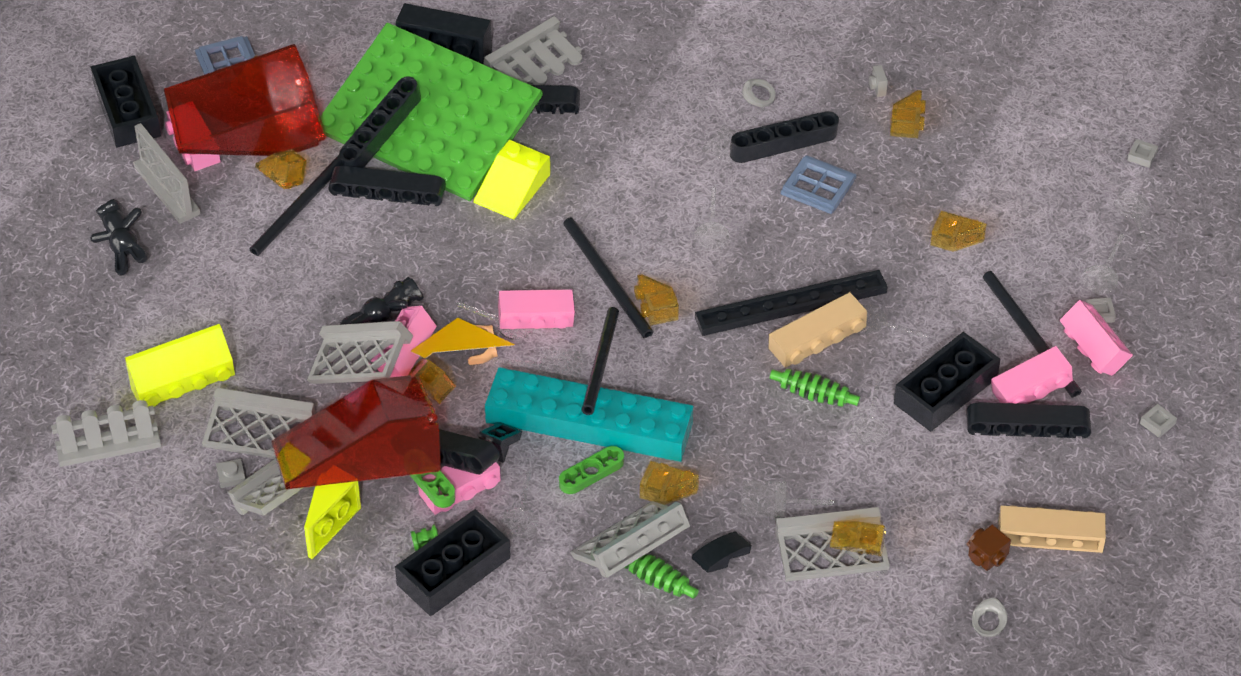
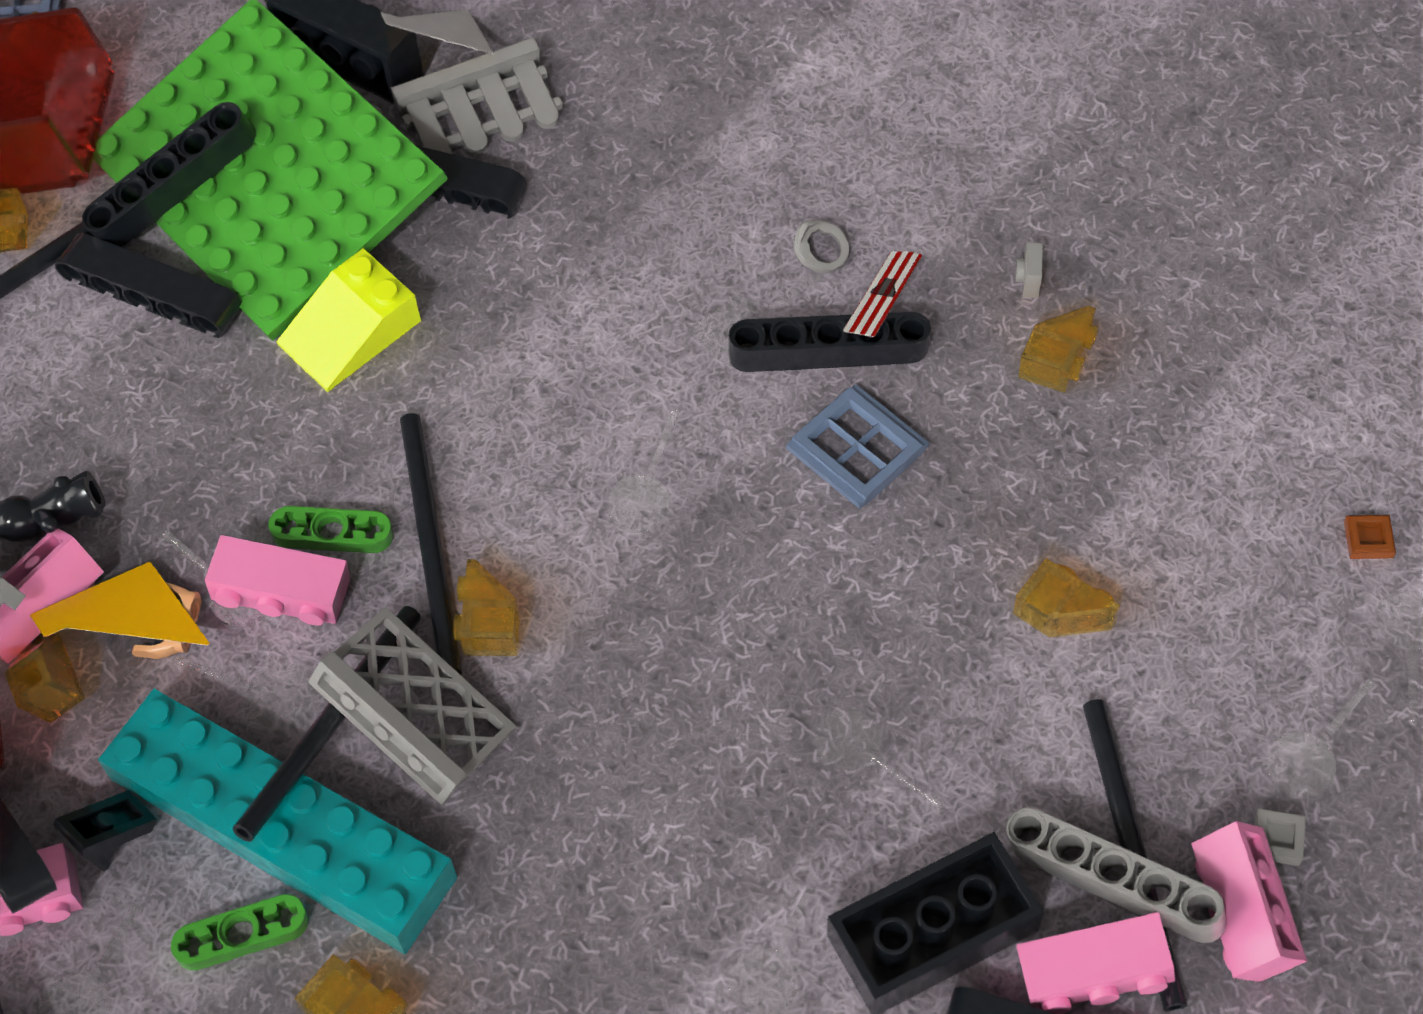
camera: 20 degrees right, 10 degrees up
(503, 18) = (449, 26): none -> white sticker
(555, 275) = (319, 518): none -> bright green beam
(639, 356) = (417, 753): none -> light grey fence
(788, 302) = (720, 674): black plate -> none
(804, 106) = (882, 293): none -> sticker
(814, 387) = (693, 864): bright green piece -> none
(818, 330) = (743, 747): tan brick -> none
(1029, 339) = (1127, 892): none -> light grey beam
(1099, 171) = (1369, 536): none -> dark orange tile

